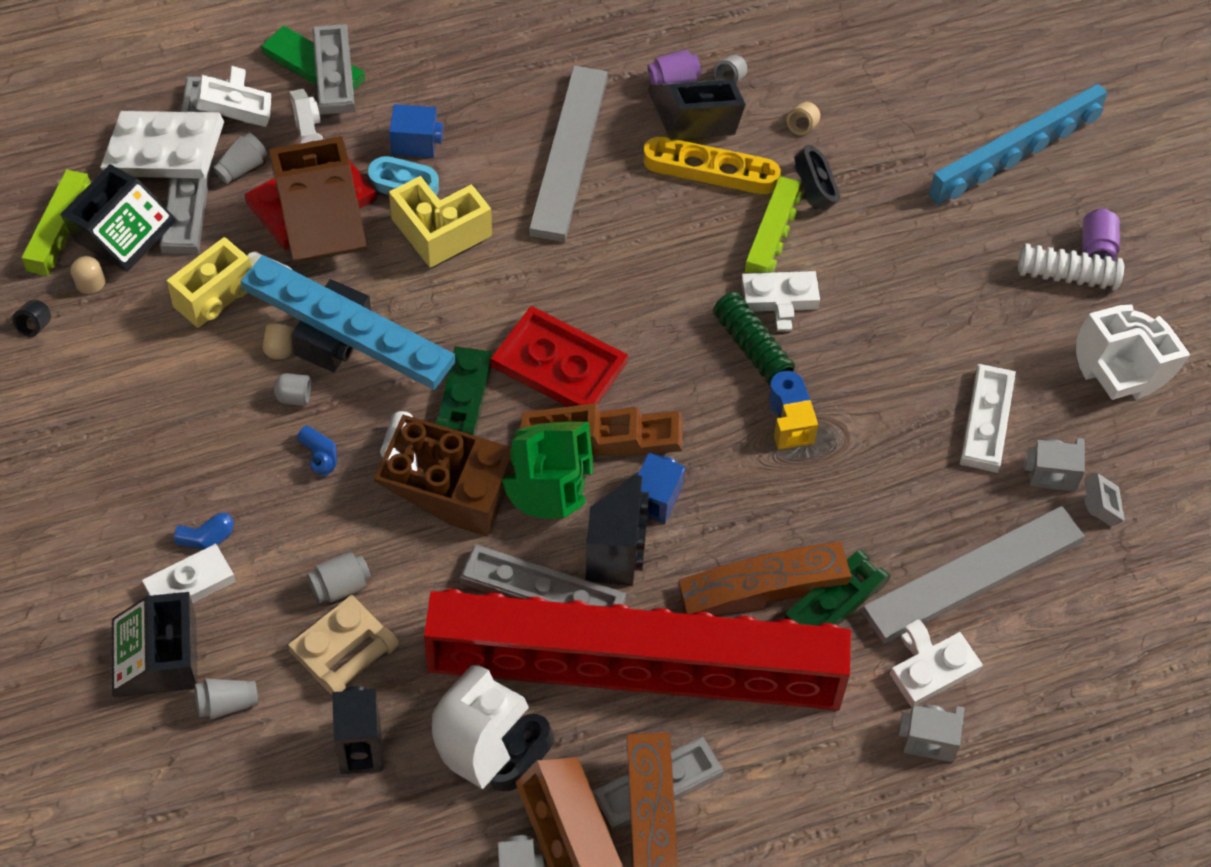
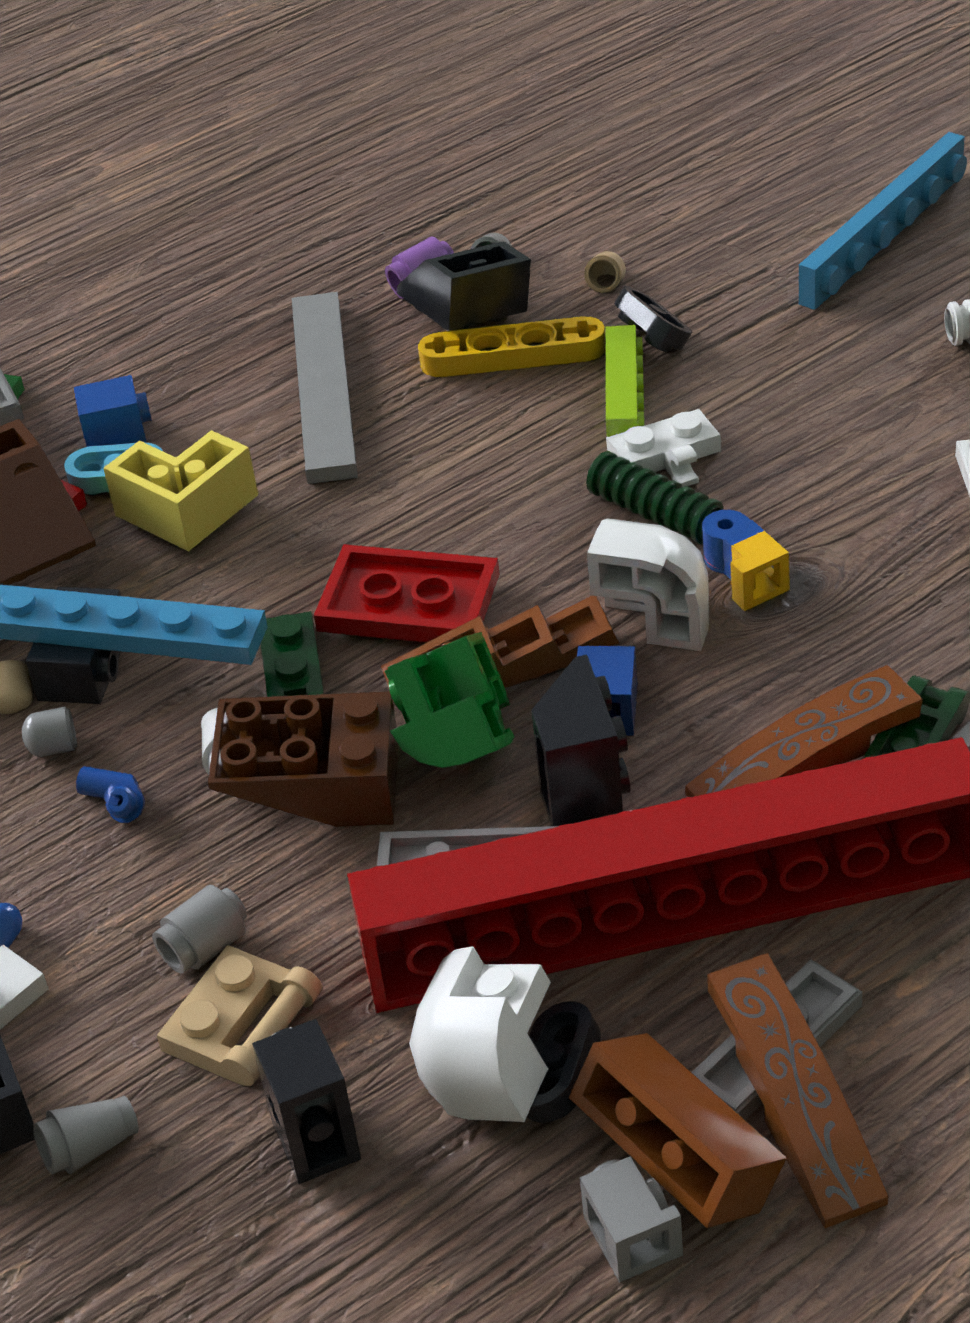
camera: 10 degrees left, 15 degrees down
(721, 411) = (652, 573): none -> white brick

